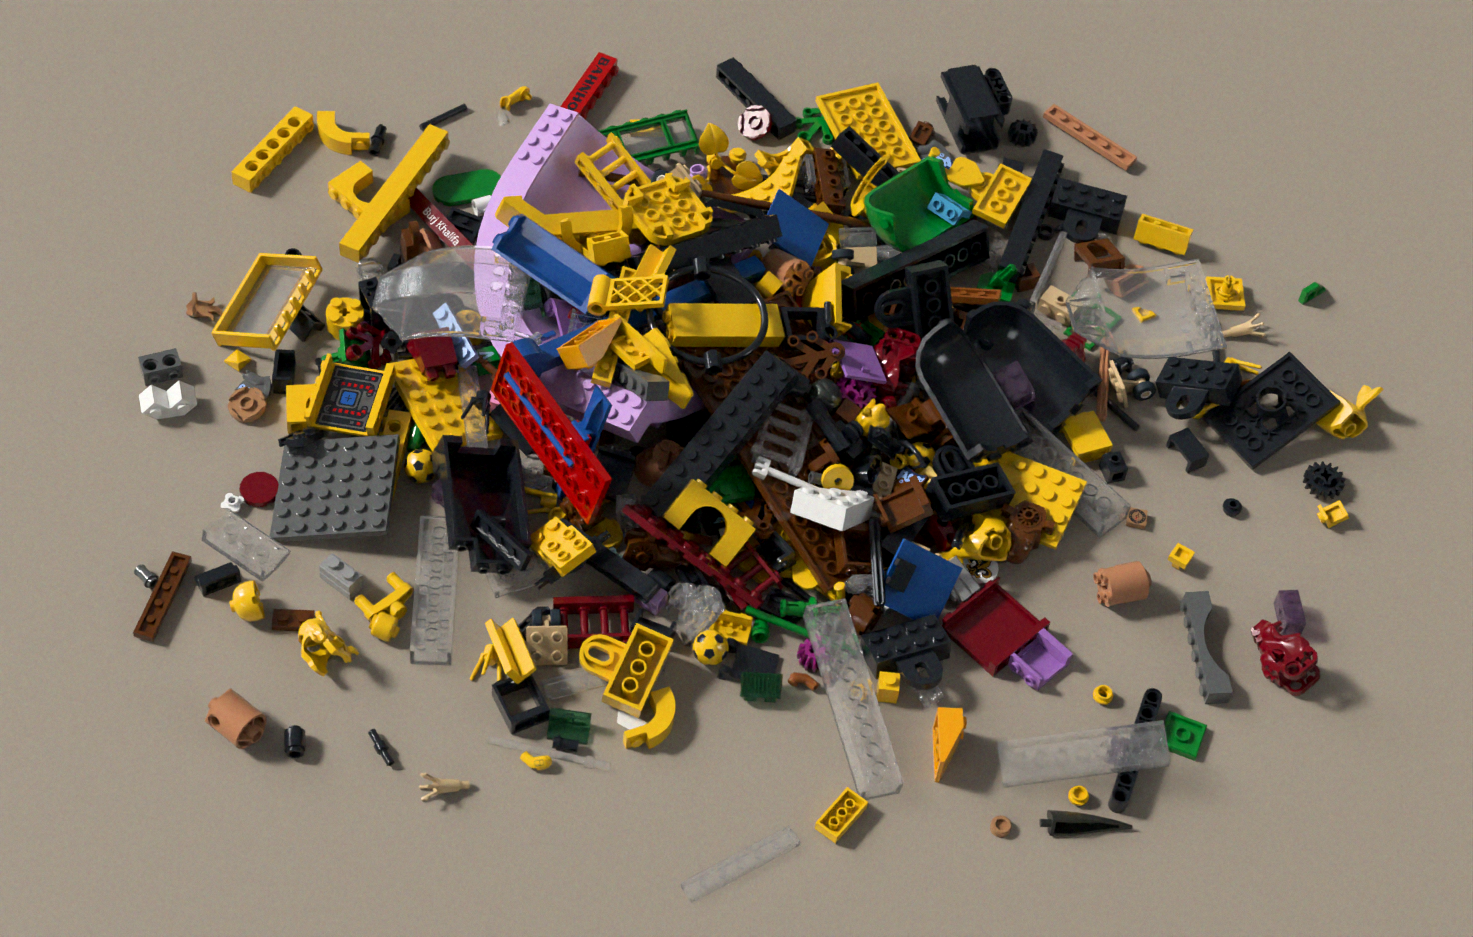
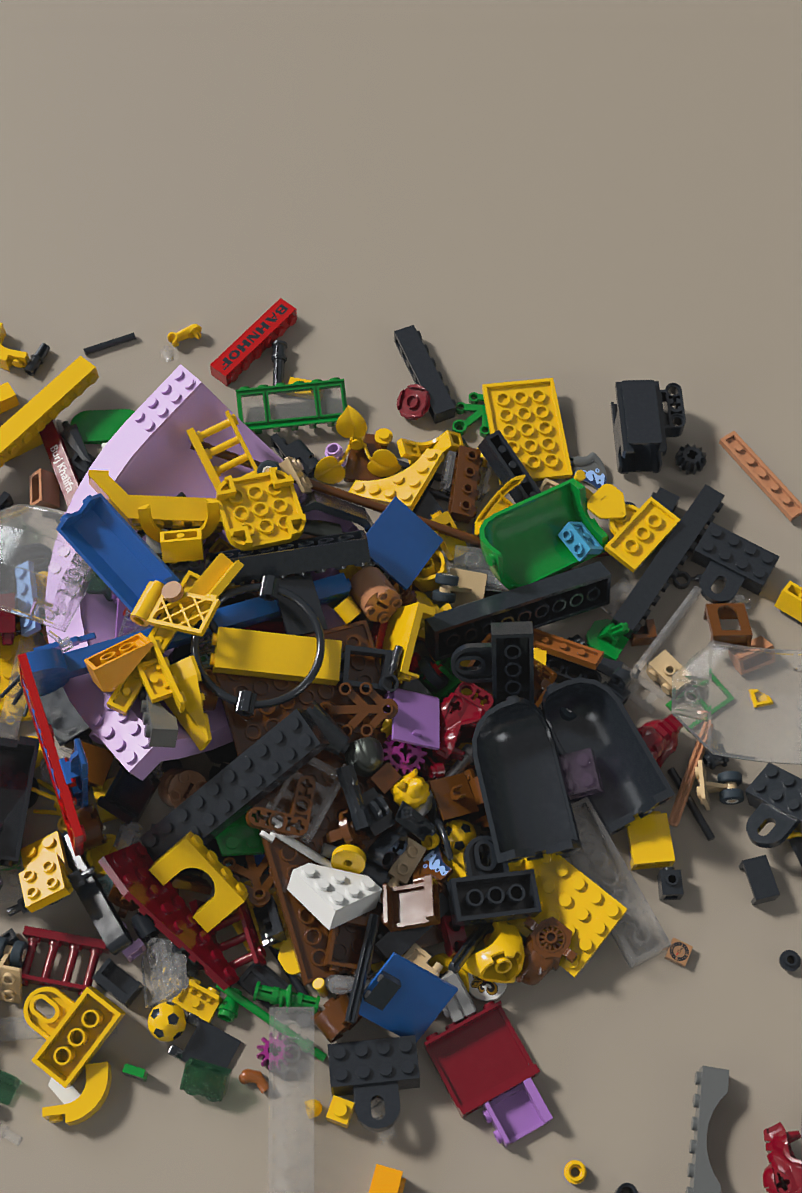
camera: 20 degrees right, 10 degrees up
(410, 241) = (17, 488): reddish brown piece -> none
(444, 200) = (74, 439): none -> black bar
(612, 109) = (279, 359): none -> black pin
(621, 278) = (172, 591): none -> tile
(695, 693) = (135, 1072): none -> green tile
(777, 450) = (294, 815): none -> reddish brown beam
(922, 133) = (583, 442): reddish brown bracket -> none
(1122, 583) = (635, 1039): nougat cylinder -> none
(1180, 556) = (712, 1015): yellow tile -> none

